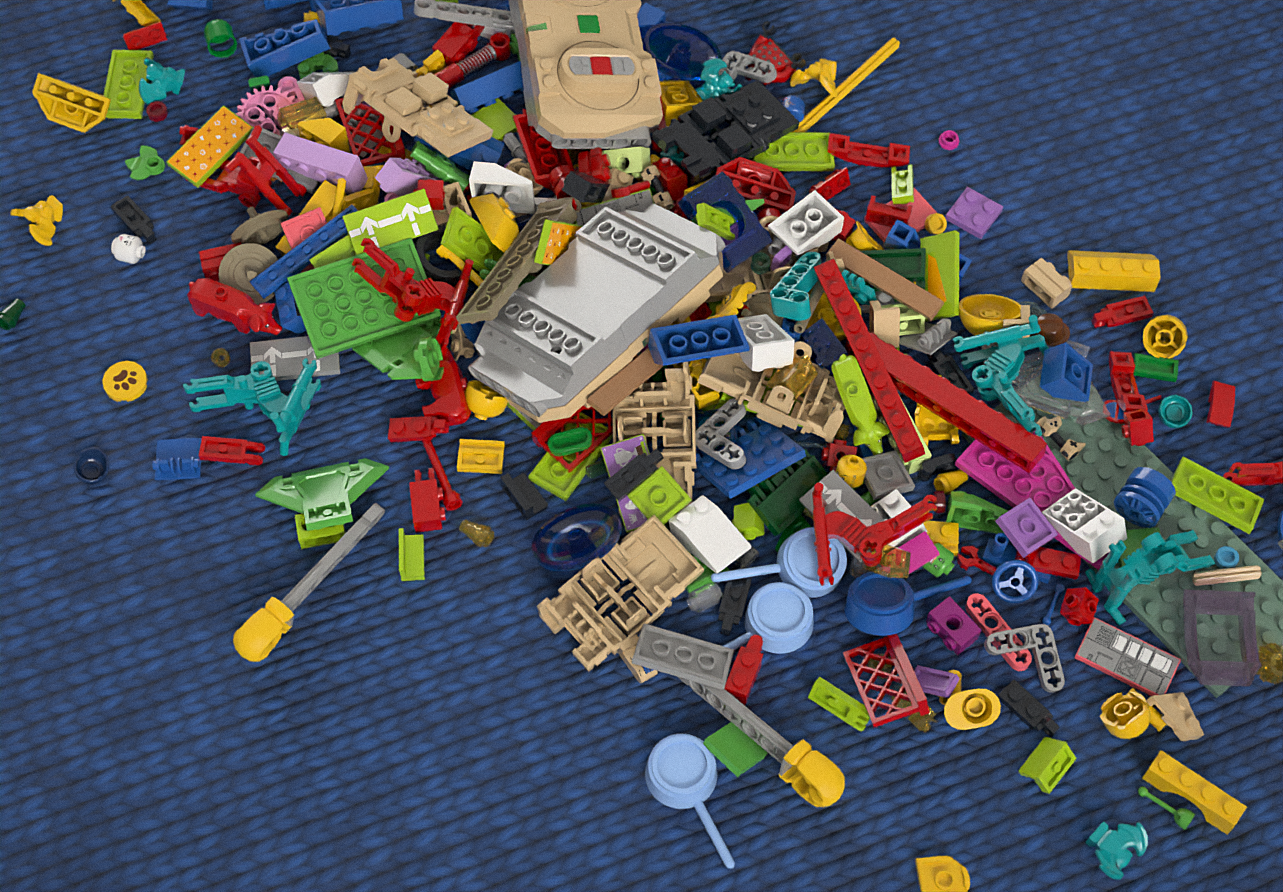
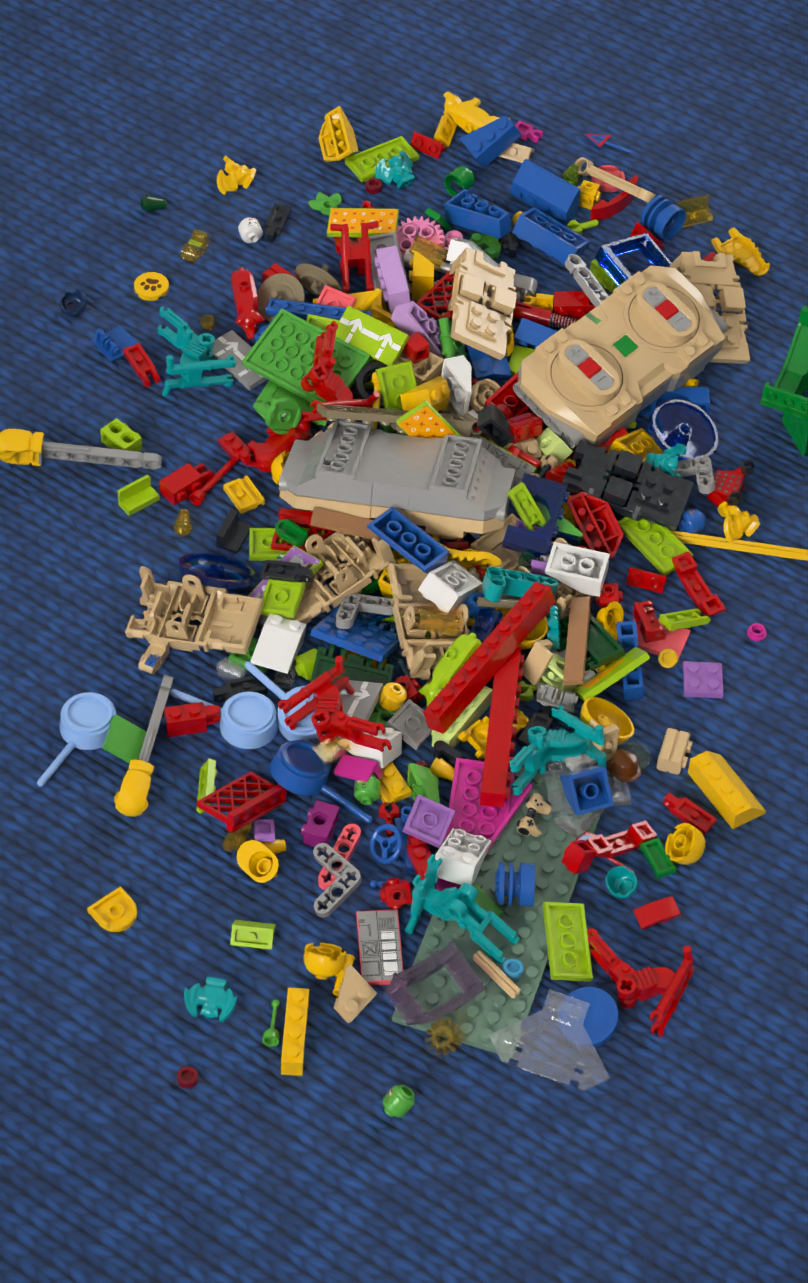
camera: 55 degrees right, 10 degrees down
(106, 309) = (196, 246): none -> clear yellow leg
(323, 492) = (145, 423): bright green plate -> none
(683, 656) = (170, 673): light grey tile -> none
(1028, 709) = (290, 902): black hinge -> none

